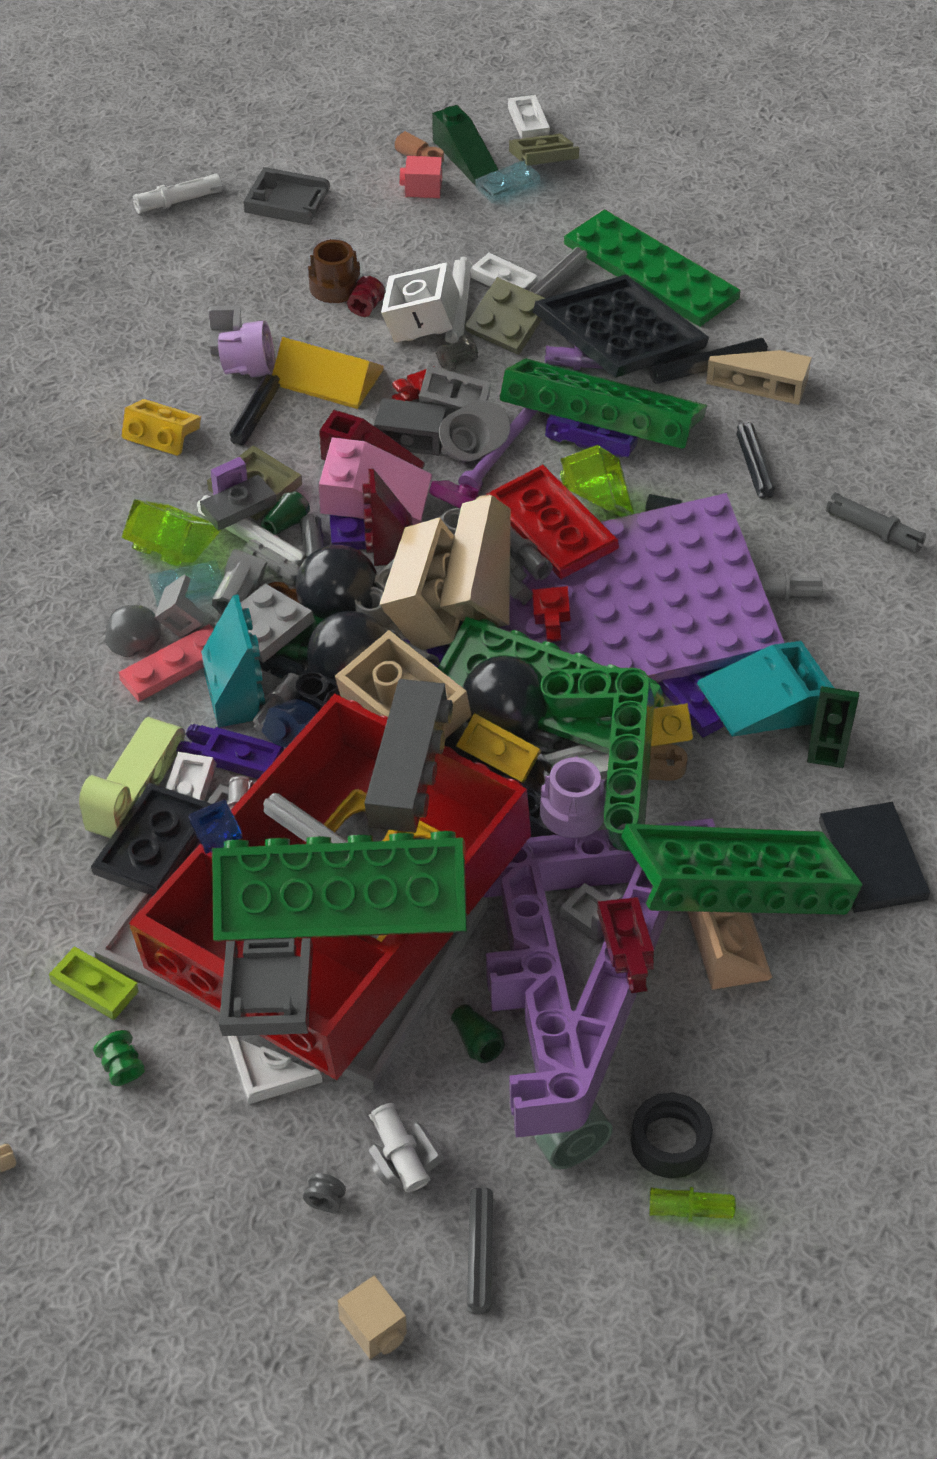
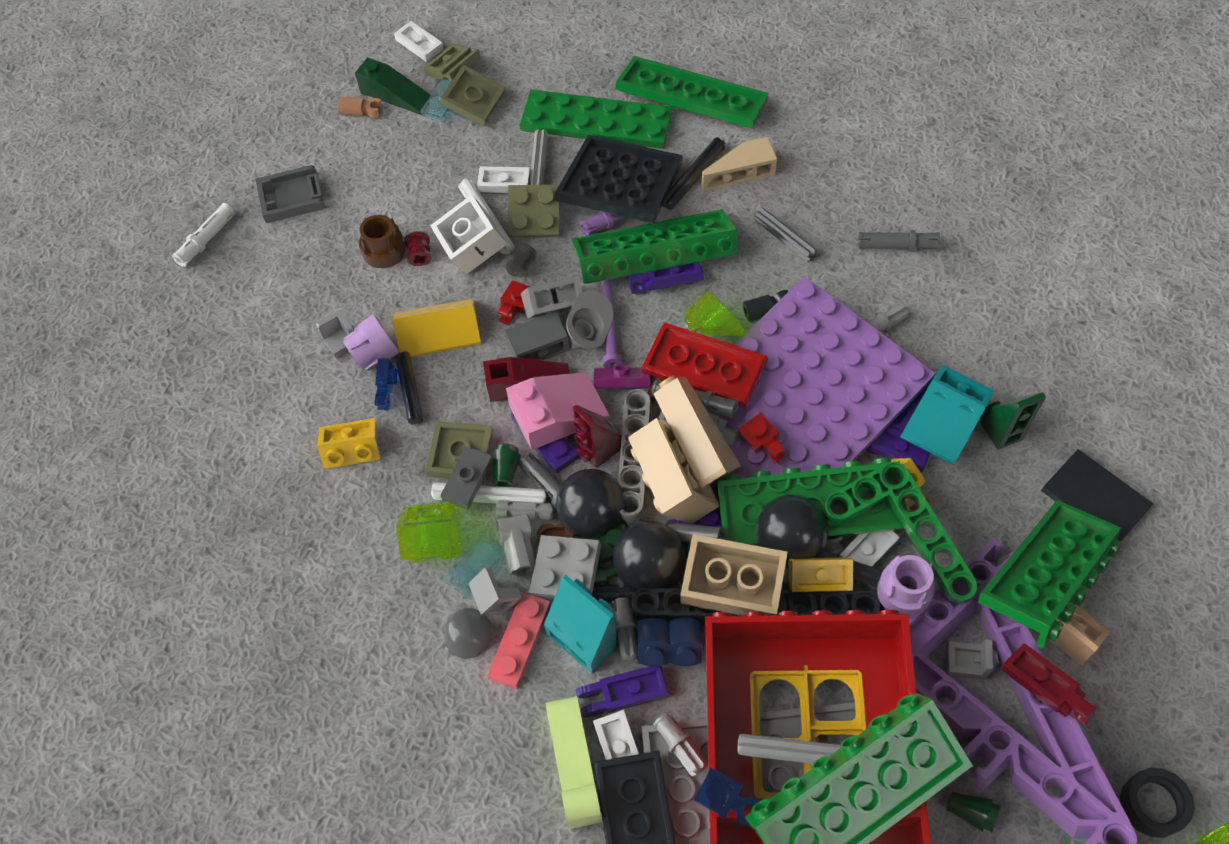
camera: 30 degrees left, 10 degrees up
(228, 475) = (447, 462): medium lavender tile -> none
(235, 390) = (385, 379): none -> clear blue plate
(408, 756) = (813, 643): dark grey brick -> none
(422, 176) = (381, 127): coral brick -> none
(538, 187) = (472, 95): none -> olive plate
(775, 285) = (692, 91): none -> green plate

